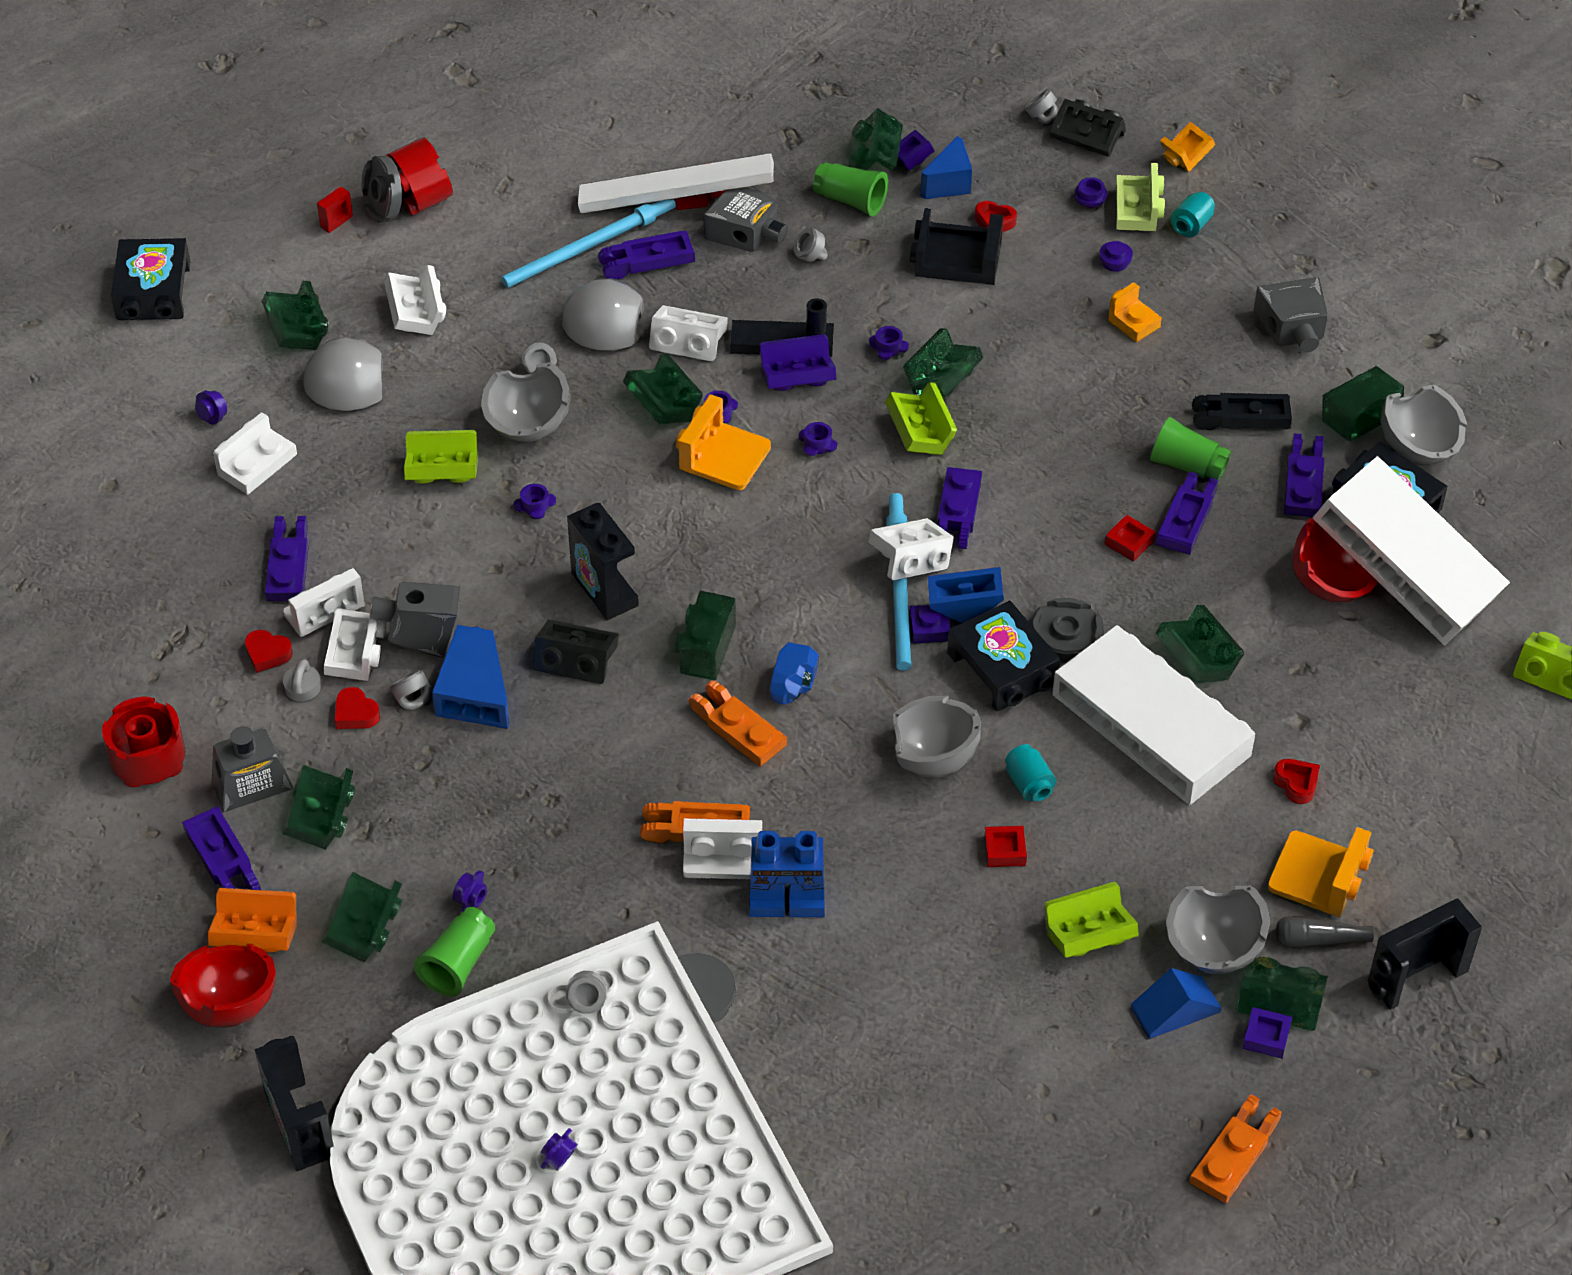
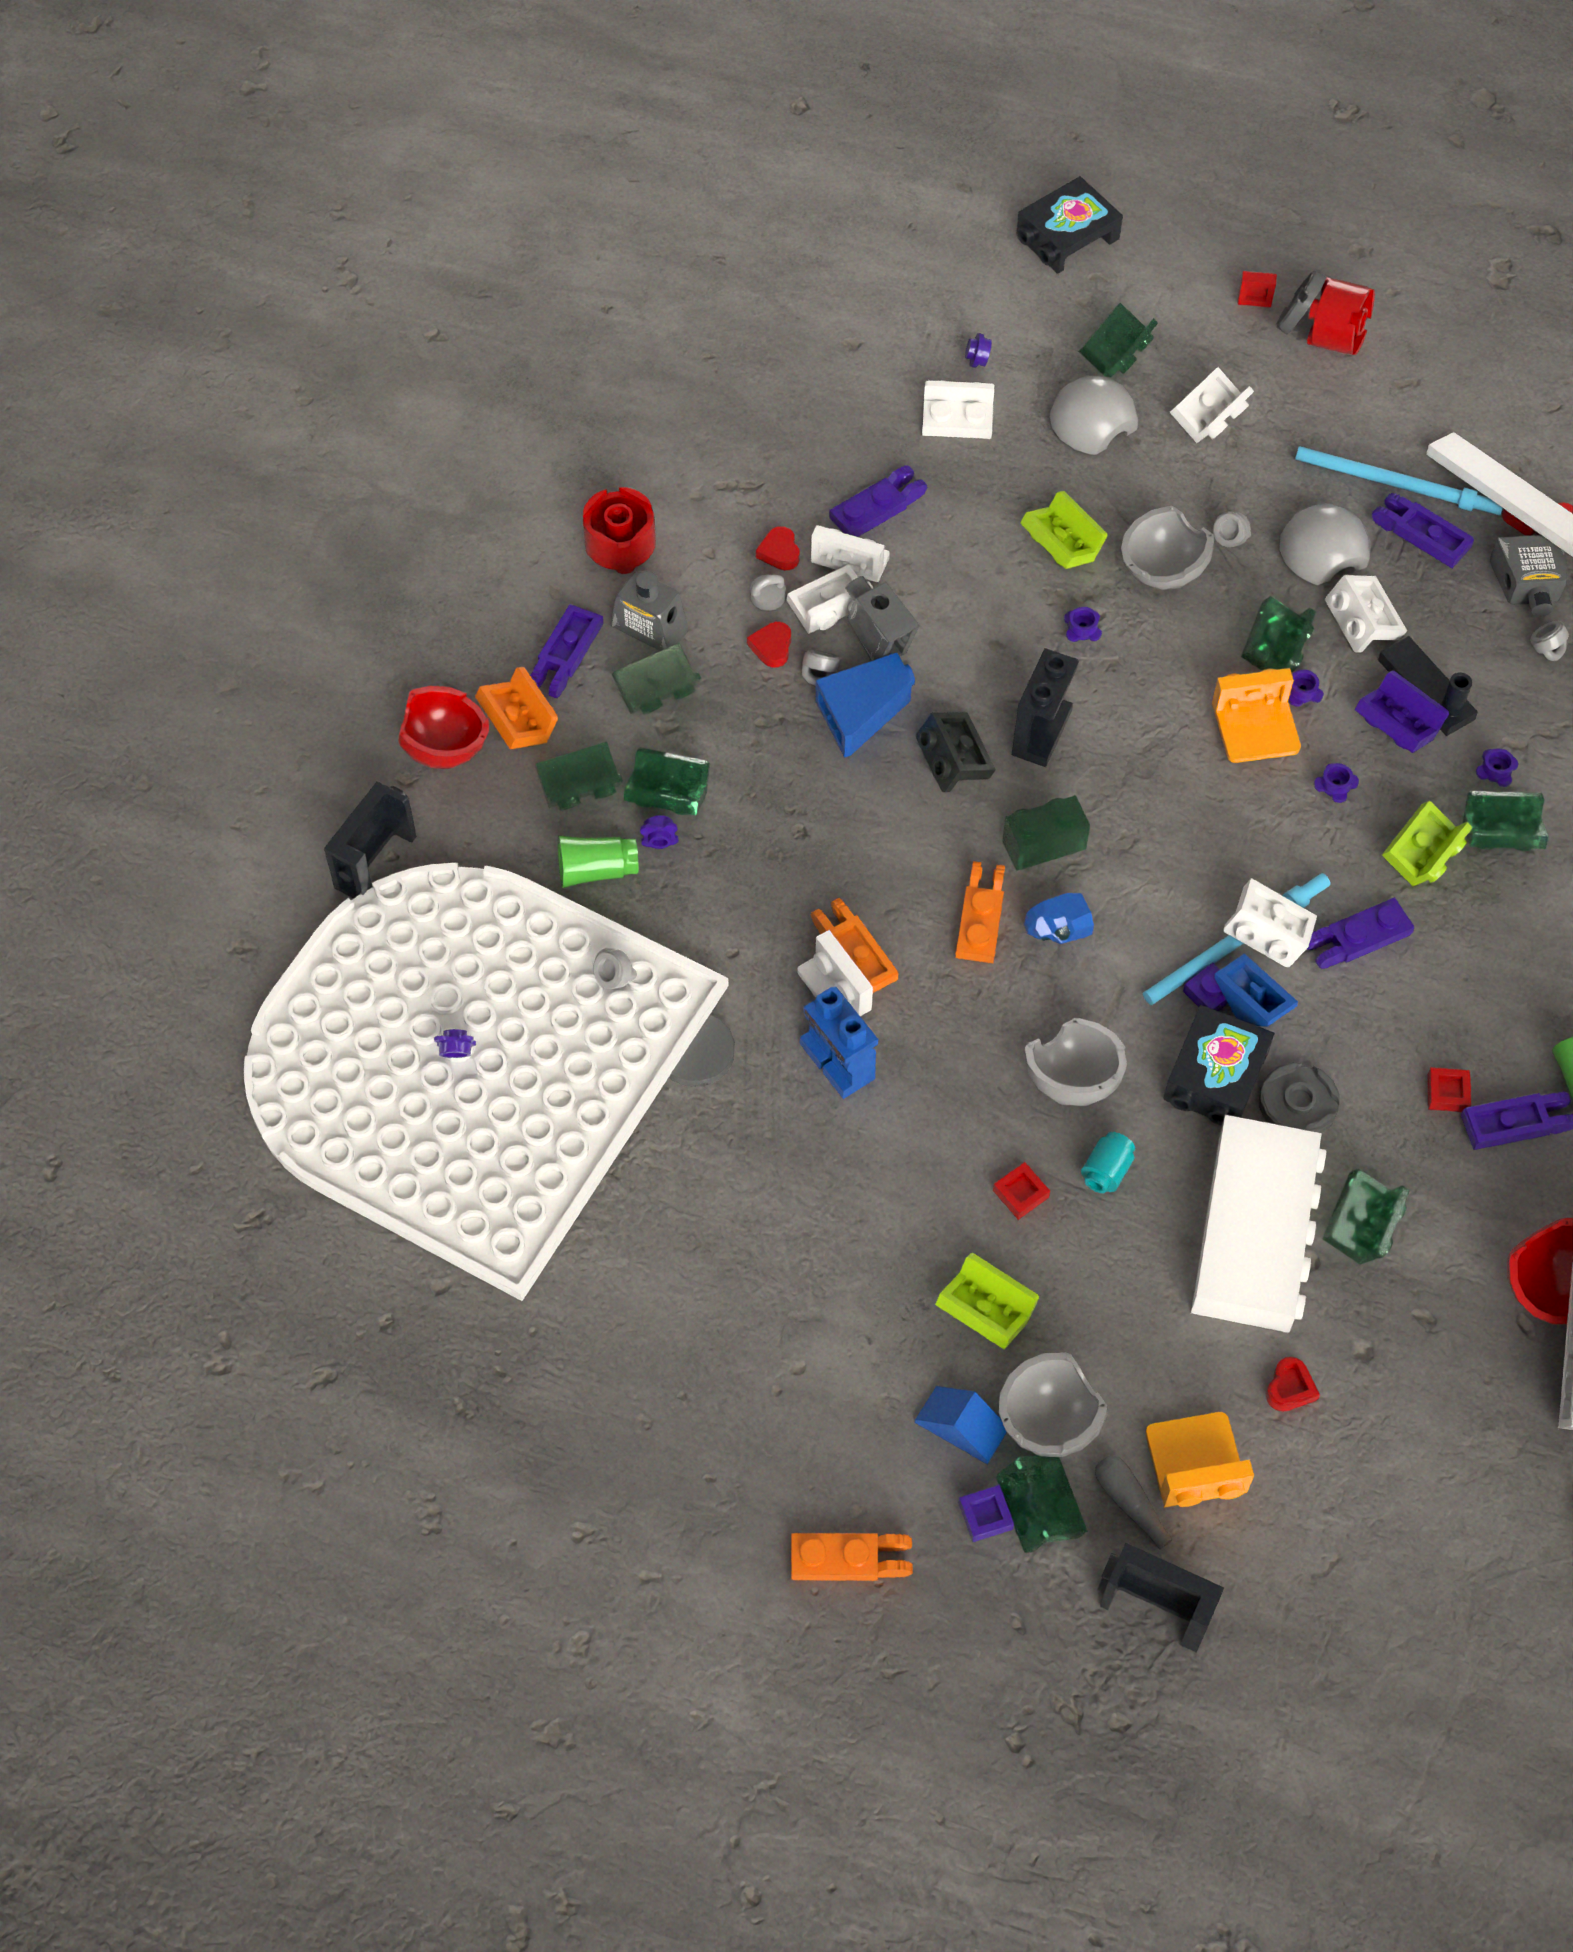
camera: 55 degrees right, 10 degrees up
(427, 856) = (668, 782): none -> clear green bracket

